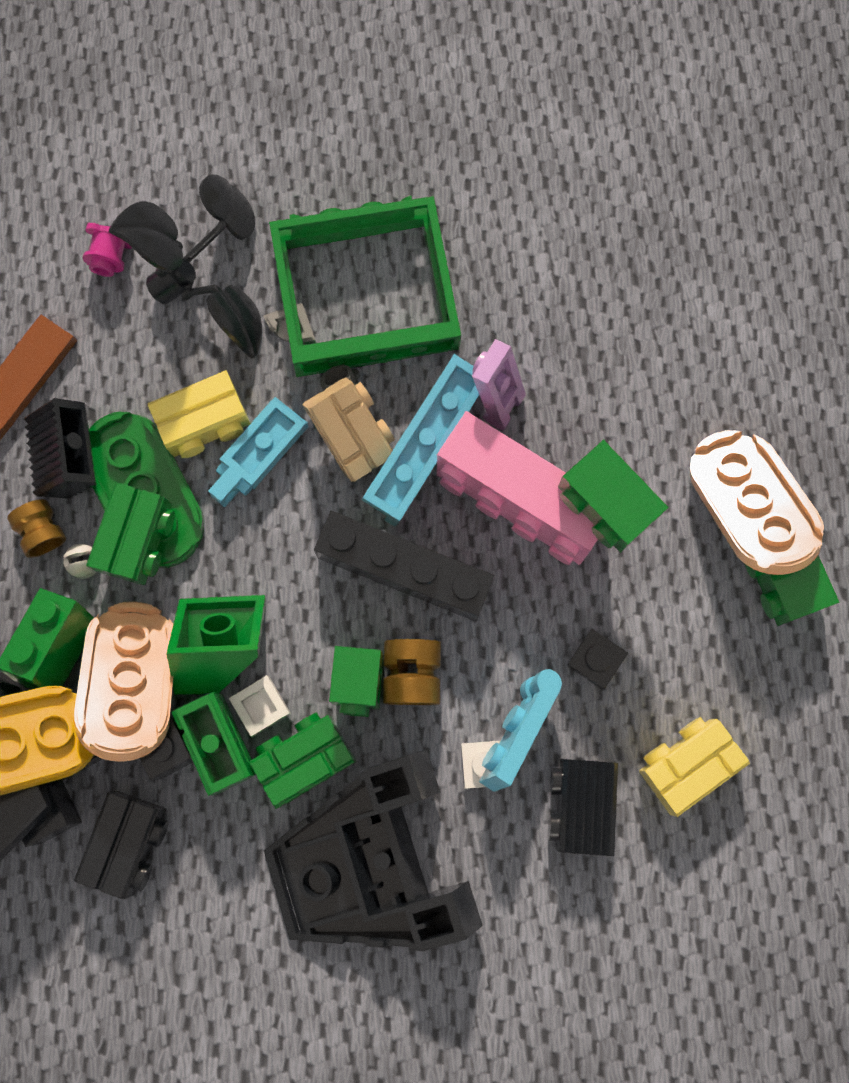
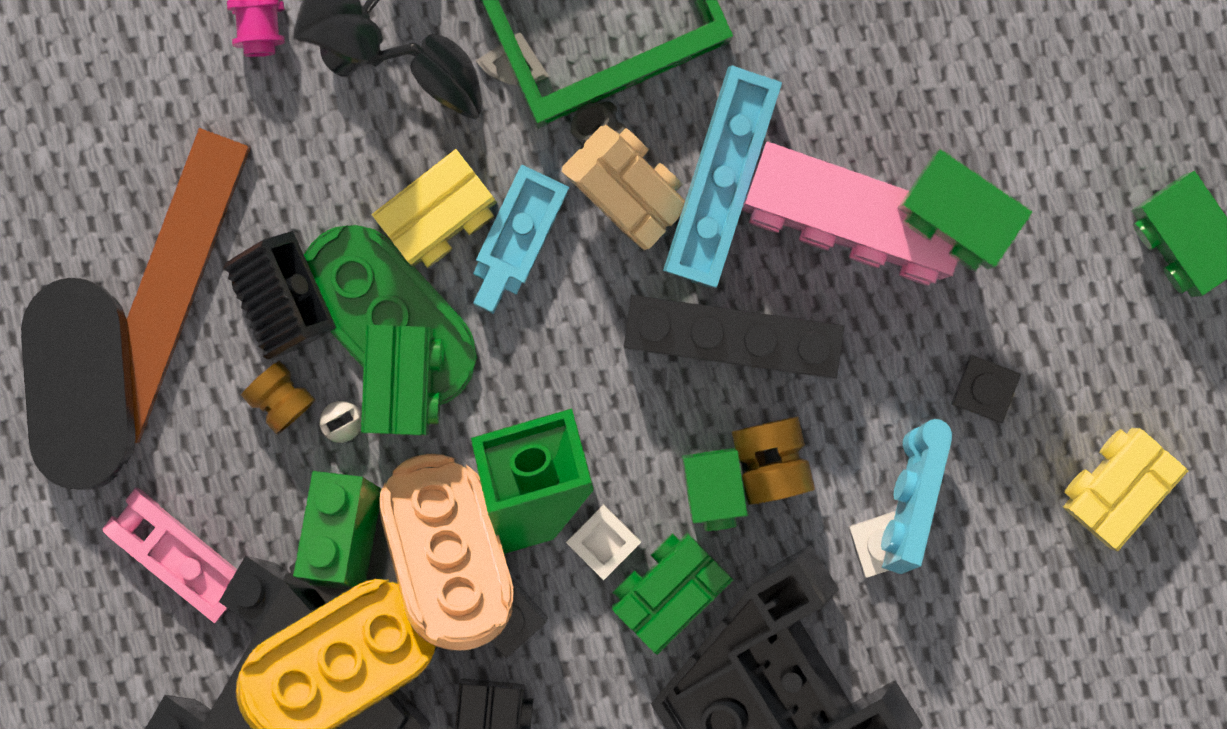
camera: 20 degrees left, 10 degrees up
(214, 743) = (566, 599): green brick -> none
(498, 383) = (794, 92): lavender plate -> none
(585, 807) = (1008, 564): black brick -> none
(756, 503) = (1134, 158): tile -> none

